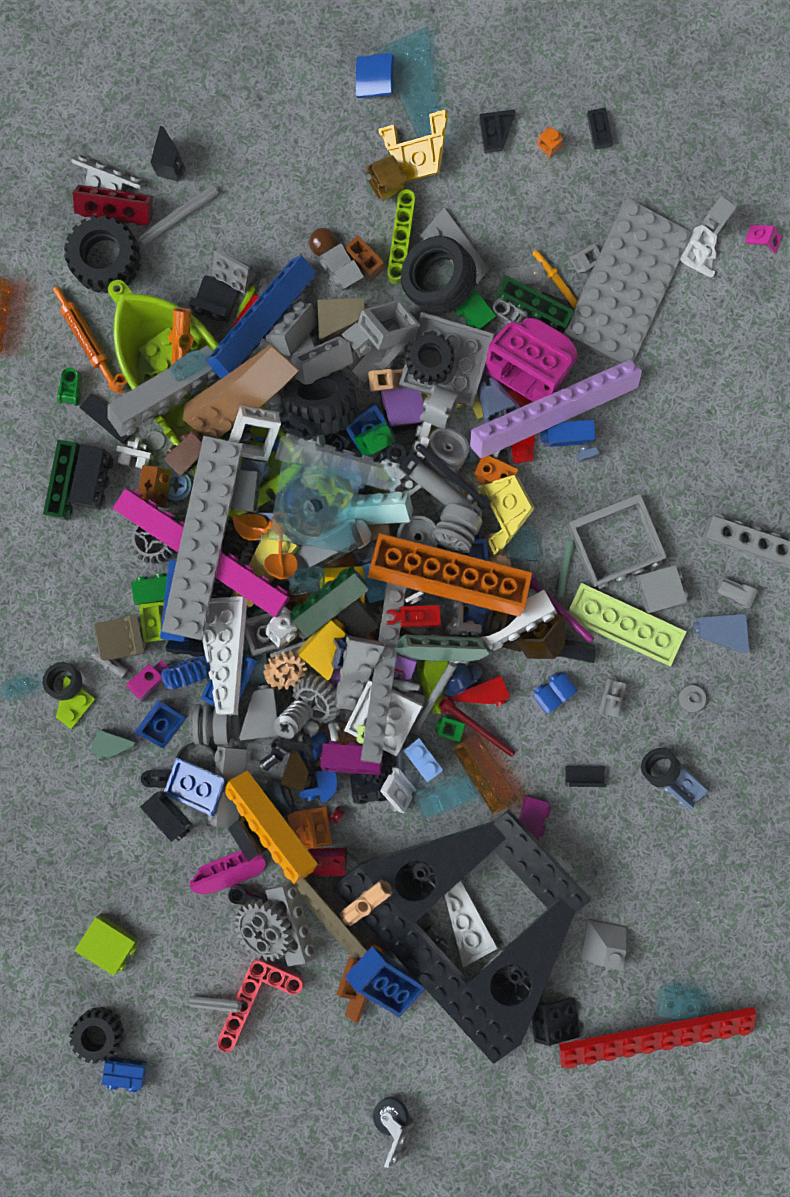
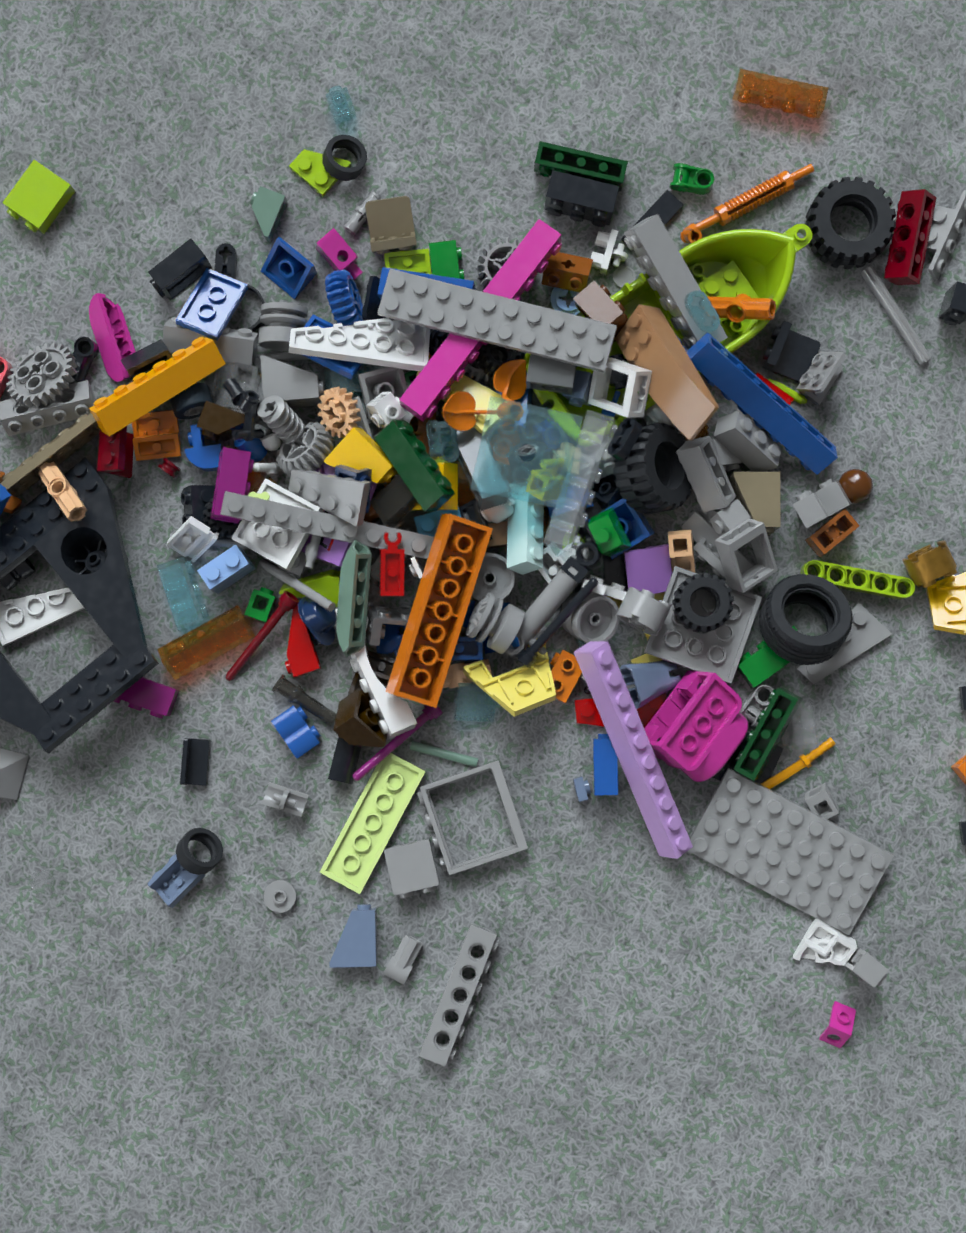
camera: 90 degrees right, 0 degrees up
(524, 694) = (295, 694): none -> clear smoke pin

